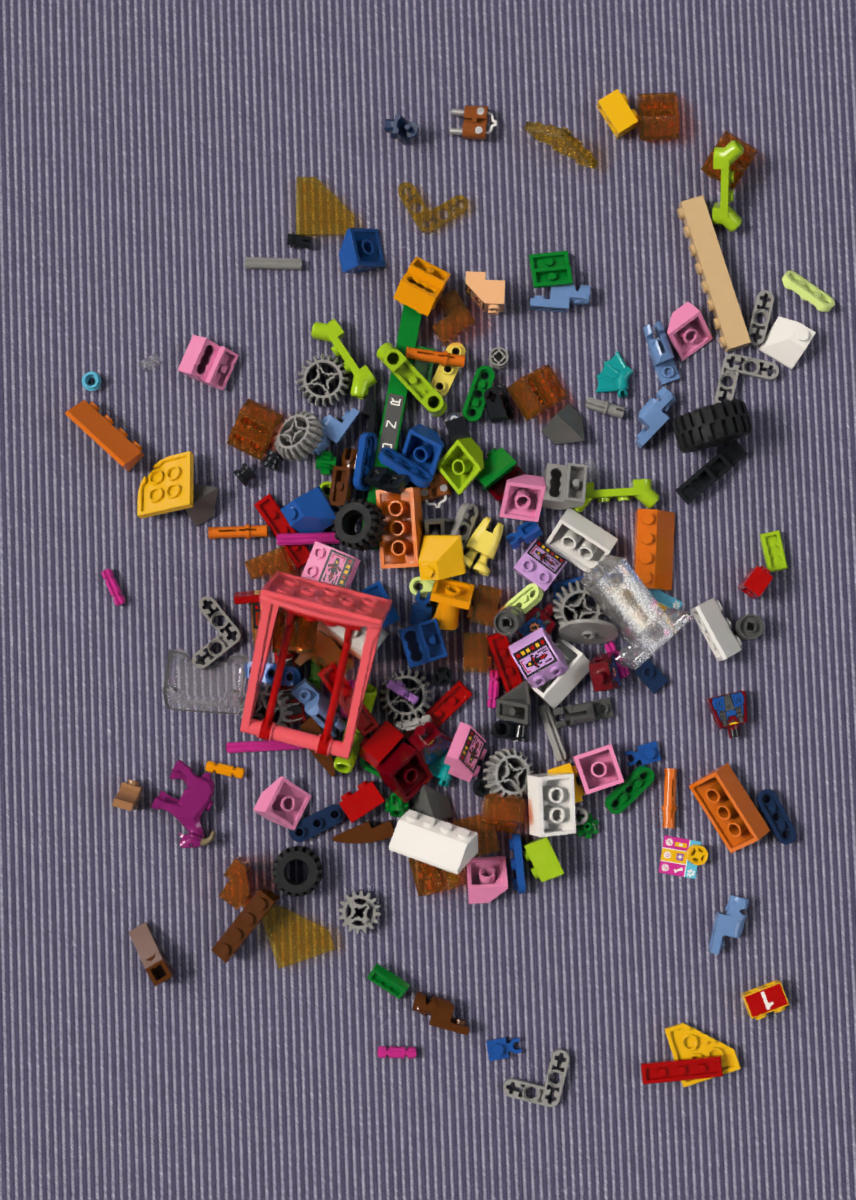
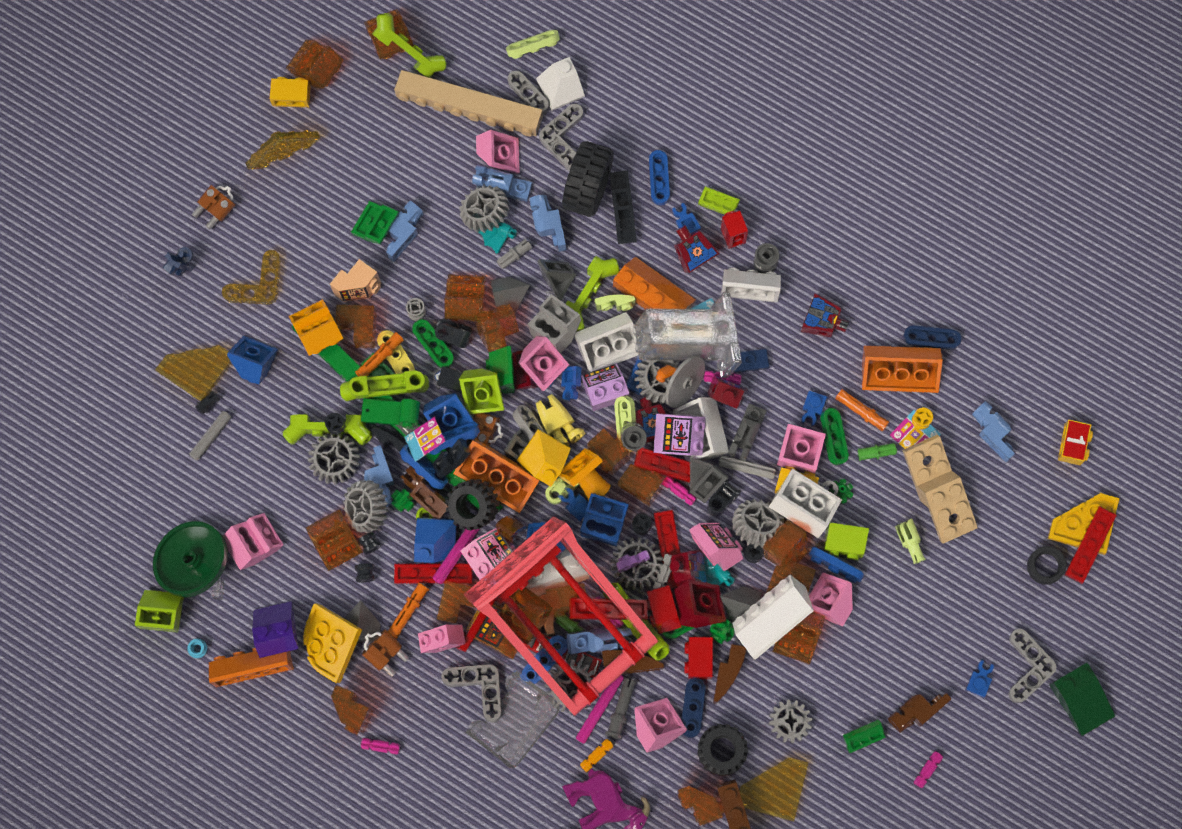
camera: 55 degrees left, 10 degrees down
(100, 328) = (159, 611): none -> lime slope
(121, 544) = (351, 714): none -> clear orange piece
(146, 433) = (274, 629): none -> dark purple slope
(158, 322) = (190, 559): none -> dark green dish
(191, 534) = (382, 650): none -> dark orange piece
(231, 577) = (441, 638): none -> bright pink brick
(266, 767) = (618, 718): none -> dark grey pin
(350, 358) = (333, 420): none -> black wheel
(362, 570) = (510, 528): none -> reddish brown slope
(387, 446) = (424, 439): none -> sticker
(392, 400) = (390, 412): none -> green door
(528, 435) = (495, 325): none -> clear orange brick
(543, 1144) = (1083, 699): none -> dark green slope
(582, 912) = (910, 539): none -> yellowish green arm
(584, 610) = (665, 372): none -> orange arm
(611, 458) = (557, 275): none -> dark grey slope
(624, 529) = (622, 302): none -> yellowish green slope
(628, 361) = (484, 208): none -> light grey gear
(636, 1057) = (1059, 558): none -> black tyre
(641, 834) = (877, 451): none -> bright green axle
(643, 910) = (940, 489): none -> tan bracket
(713, 559) = (693, 249): none -> torso
(735, 537) = (684, 219): none -> blue plate
(767, 480) = (659, 170): none -> blue plate

